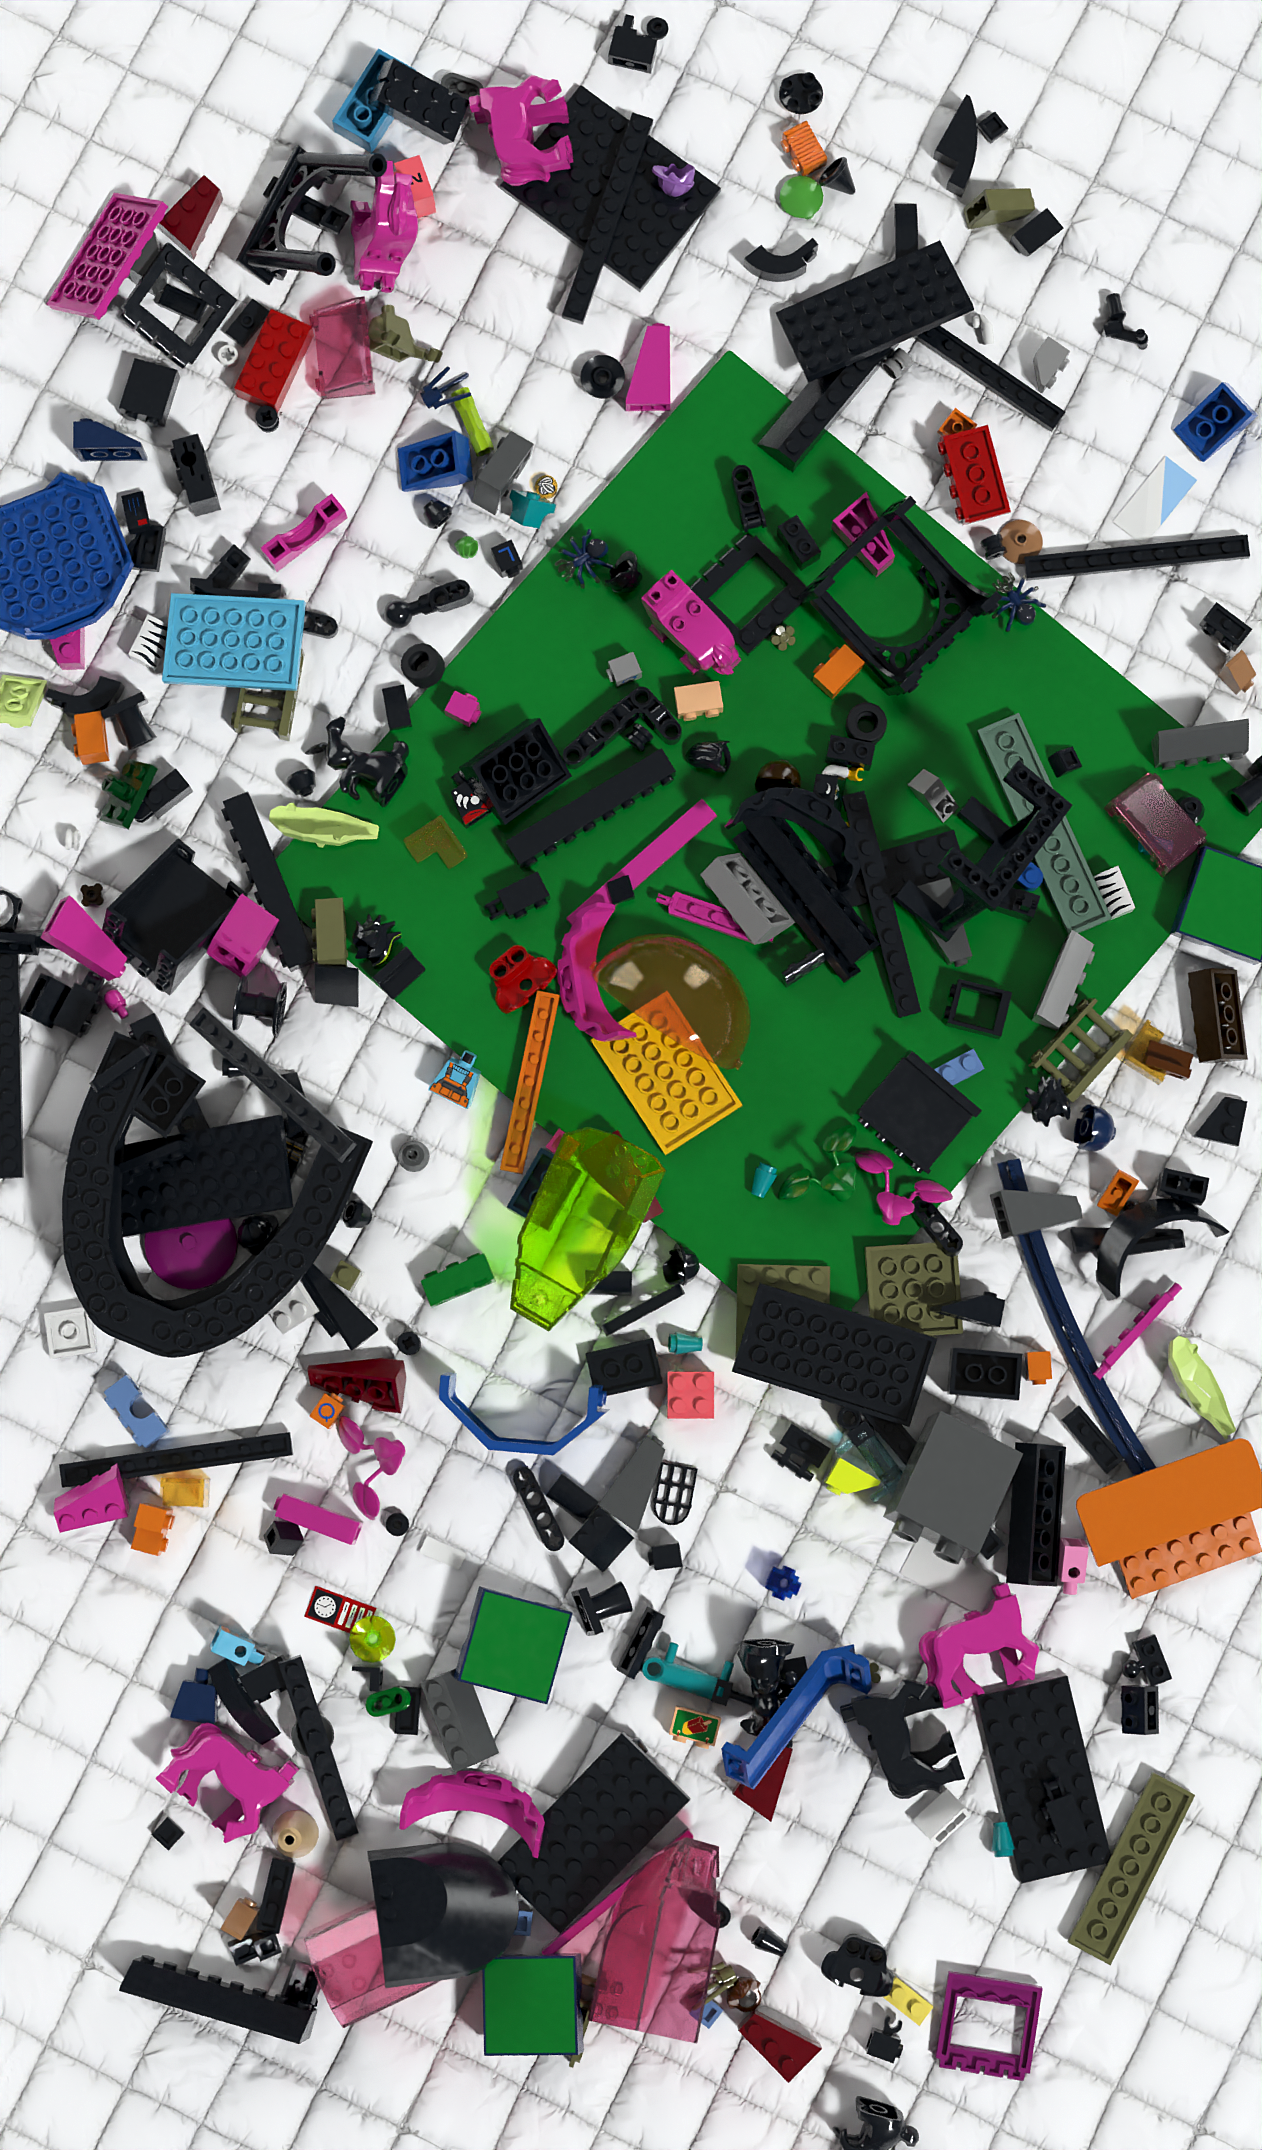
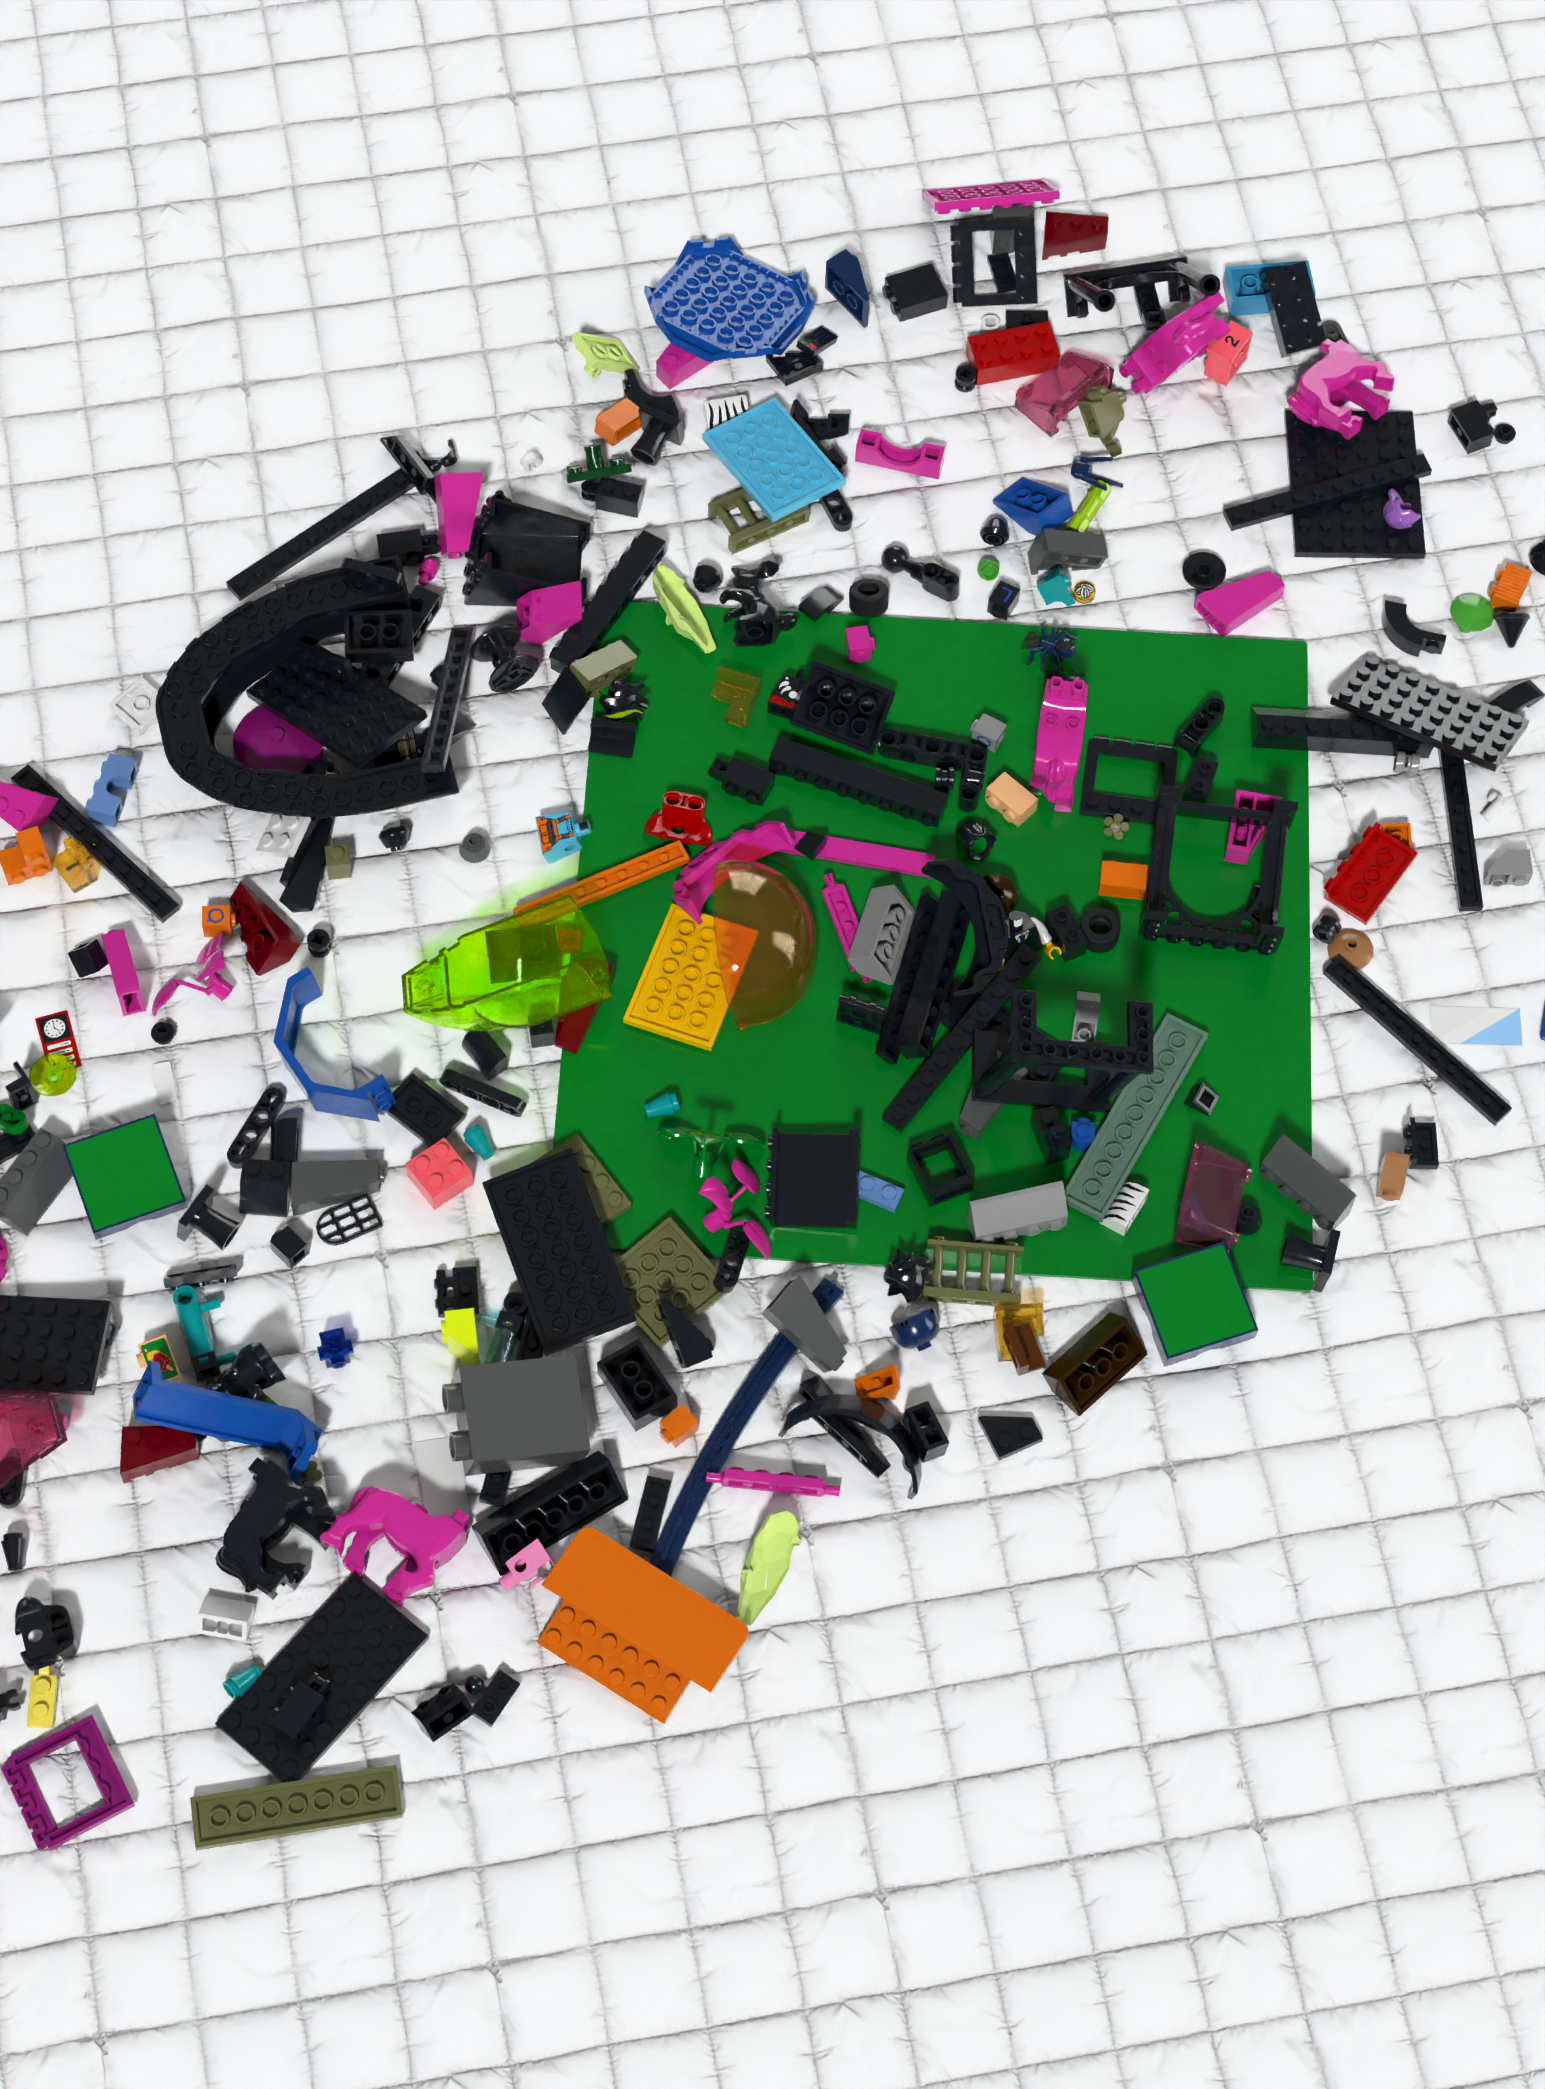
camera: 50 degrees right, 20 degrees down
(45, 1000) = (389, 522): black brick -> none
(195, 474) = (879, 356): black piece -> none
(457, 1279) = (398, 940): green wedge -> none
(681, 1266) = (542, 1096): black piece -> none
(1018, 604) = (1296, 971): animal -> none

